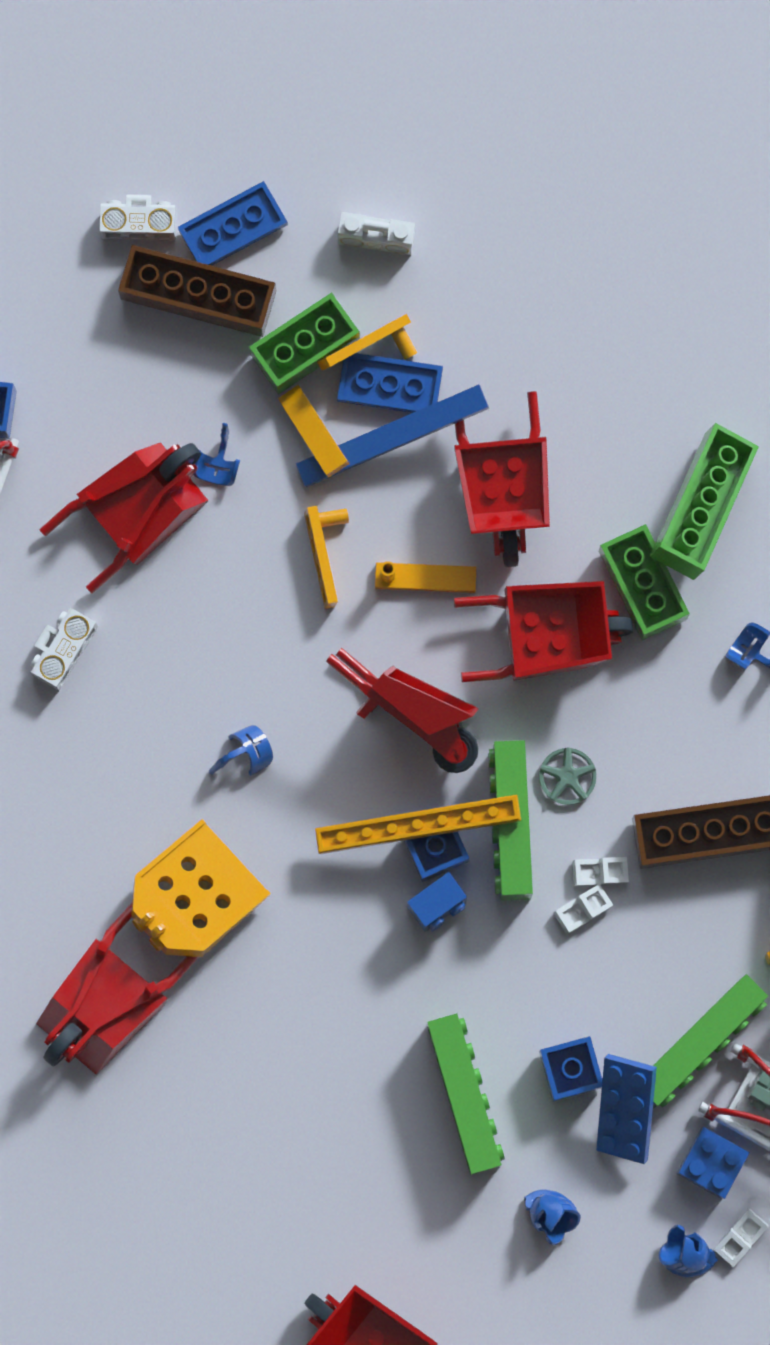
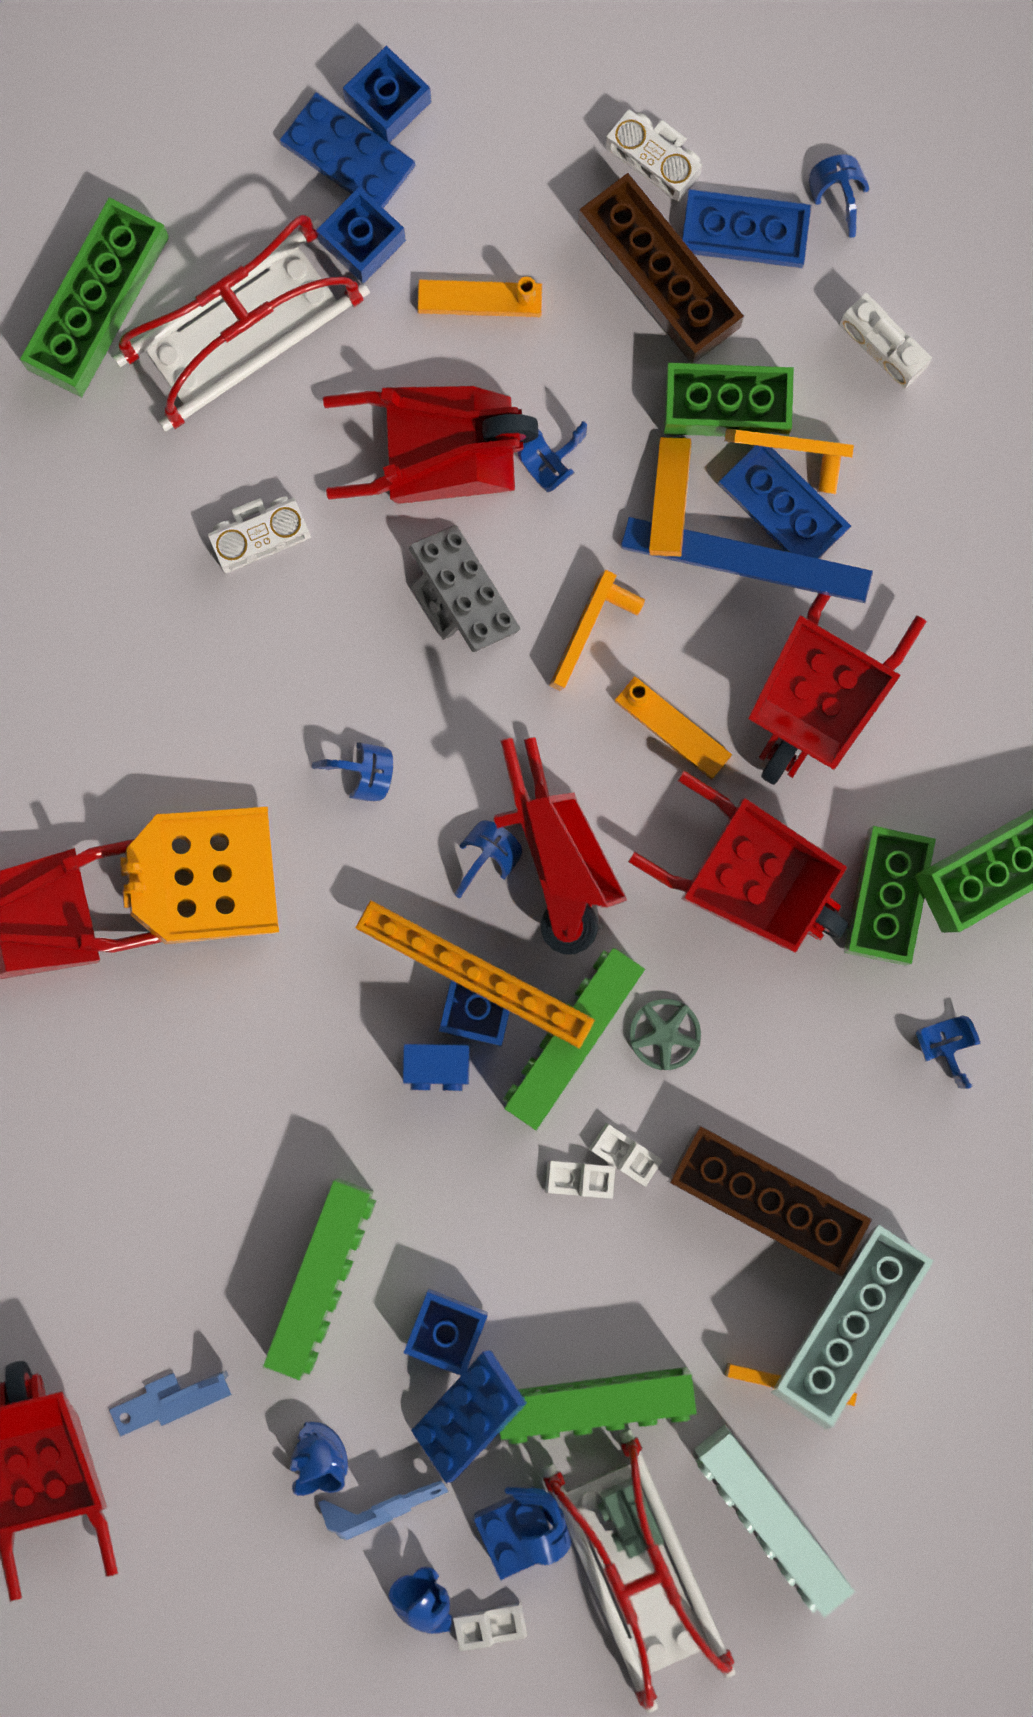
camera: 35 degrees right, 5 degrees up
(93, 393) = (480, 298): none -> light orange piece
(222, 591) = (459, 591): none -> dark grey bracket
(272, 140) = (826, 174): none -> blue helmet
(382, 739) = (507, 843): none -> blue helmet
(426, 1252) = (169, 1402): none -> medium blue piece
(602, 1240) = (350, 1525): none -> medium blue piece
(734, 1155) = (543, 1548): none -> blue helmet

